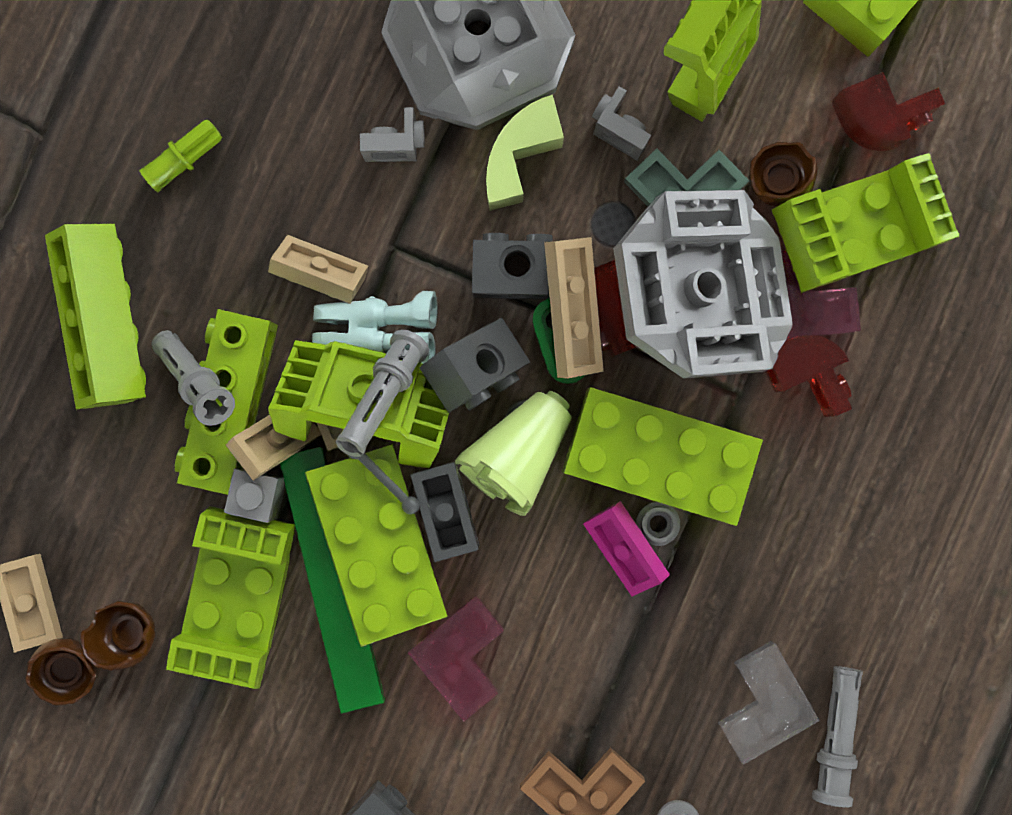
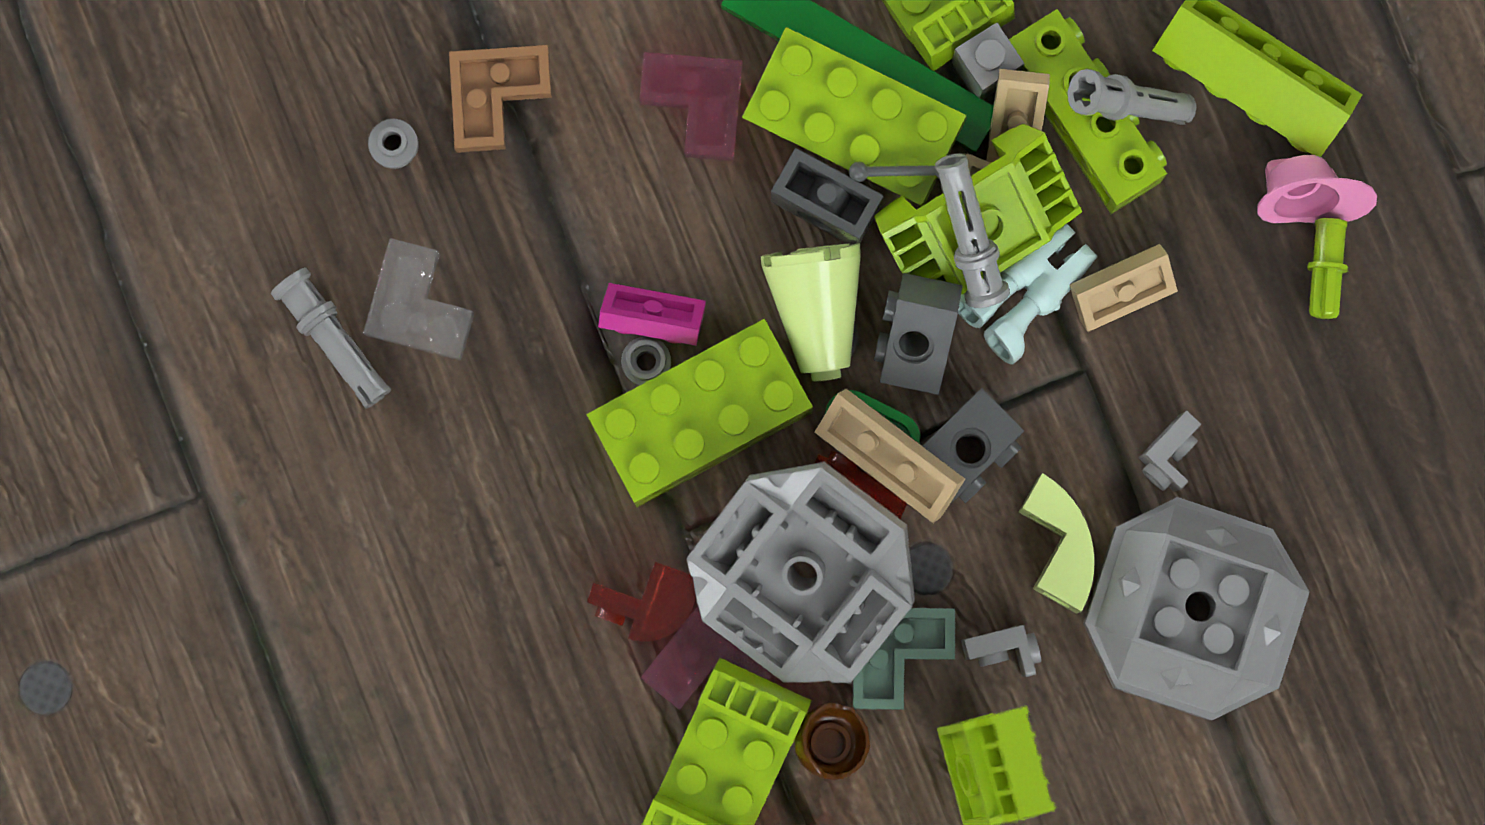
camera: 135 degrees right, 5 degrees down
(139, 210) = (1309, 189): none -> bright pink piece

